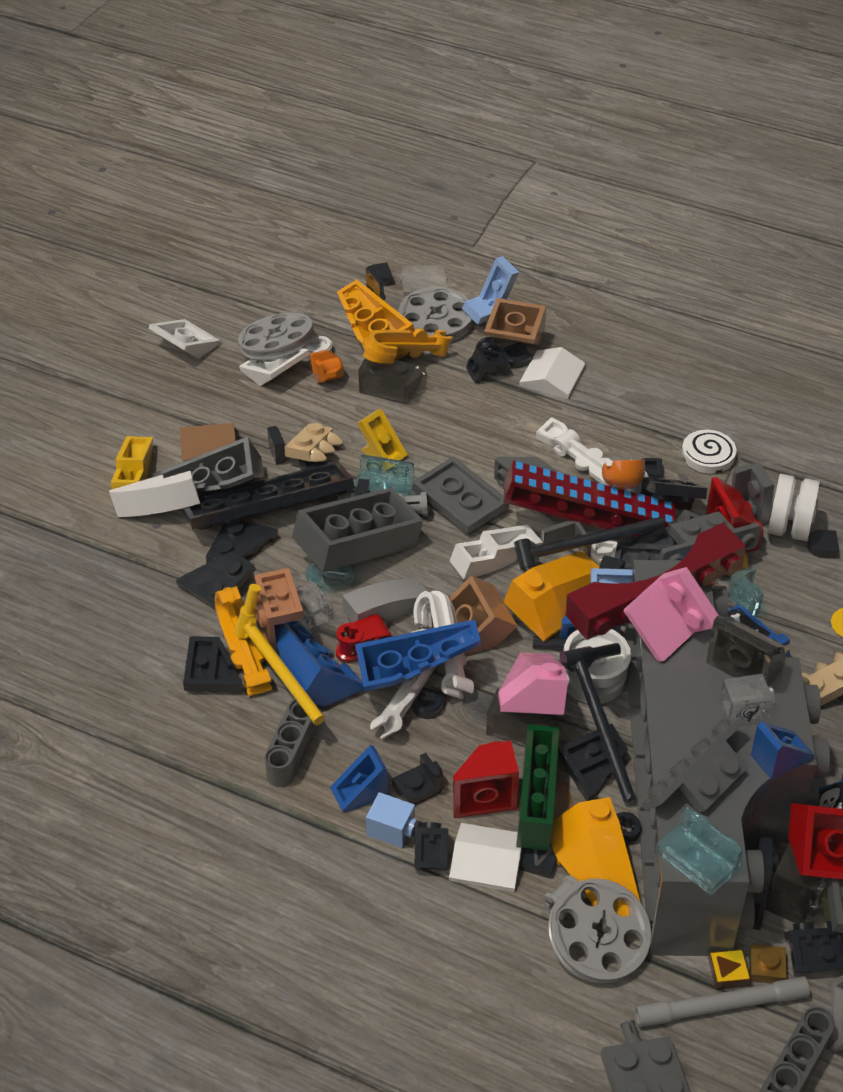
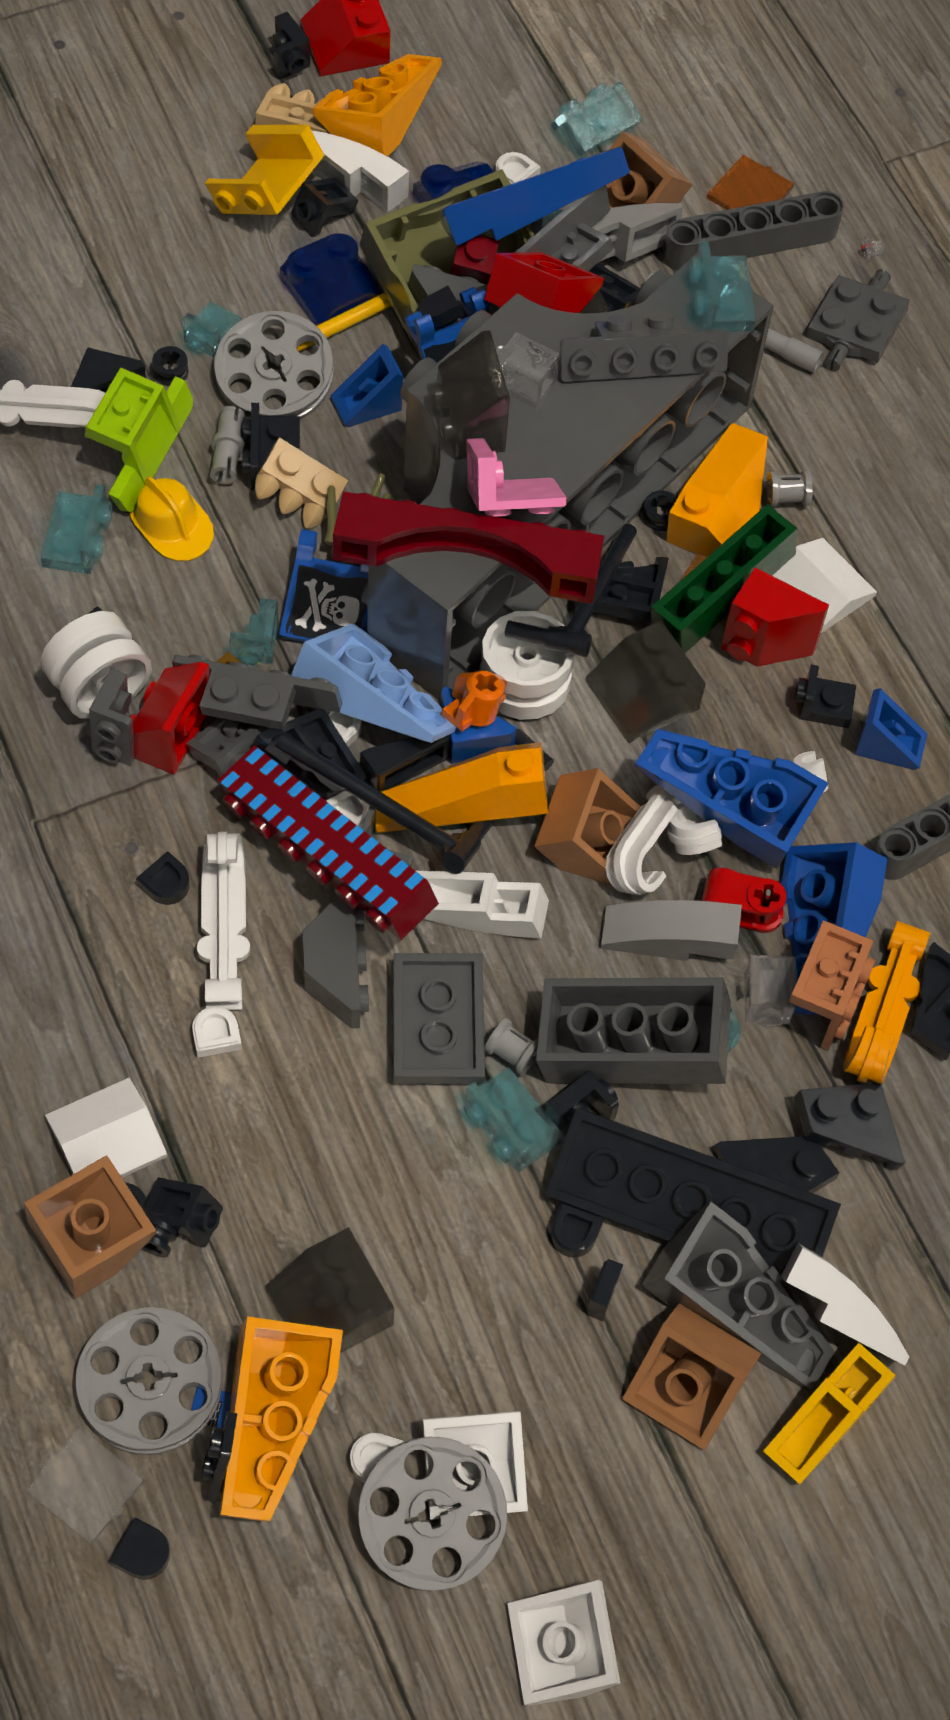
camera: 145 degrees left, 15 degrees up
(247, 628) = (879, 972): yellow bar -> none
(312, 443) = (555, 1253): tan plate -> none
(326, 366) = (412, 1387): orange piece -> none
(381, 437) = (461, 1182): yellow slope -> none
(385, 345) = (293, 1307): light orange piece -> none
(391, 820) = (894, 670): light blue brick -> none
(431, 846) = (870, 624): black bracket -> none
(498, 285) = (54, 1312): light blue bracket -> none
(534, 685) = (629, 666): bright pink wedge -> none
(584, 935) = (790, 433): light grey wedge -> none
(624, 473) = (256, 824): orange hair -> none
(676, 491) = (201, 790): black bracket -> none
(708, 451) = (64, 848): white tile -> none
(778, 749) = (546, 308): blue slope -> none

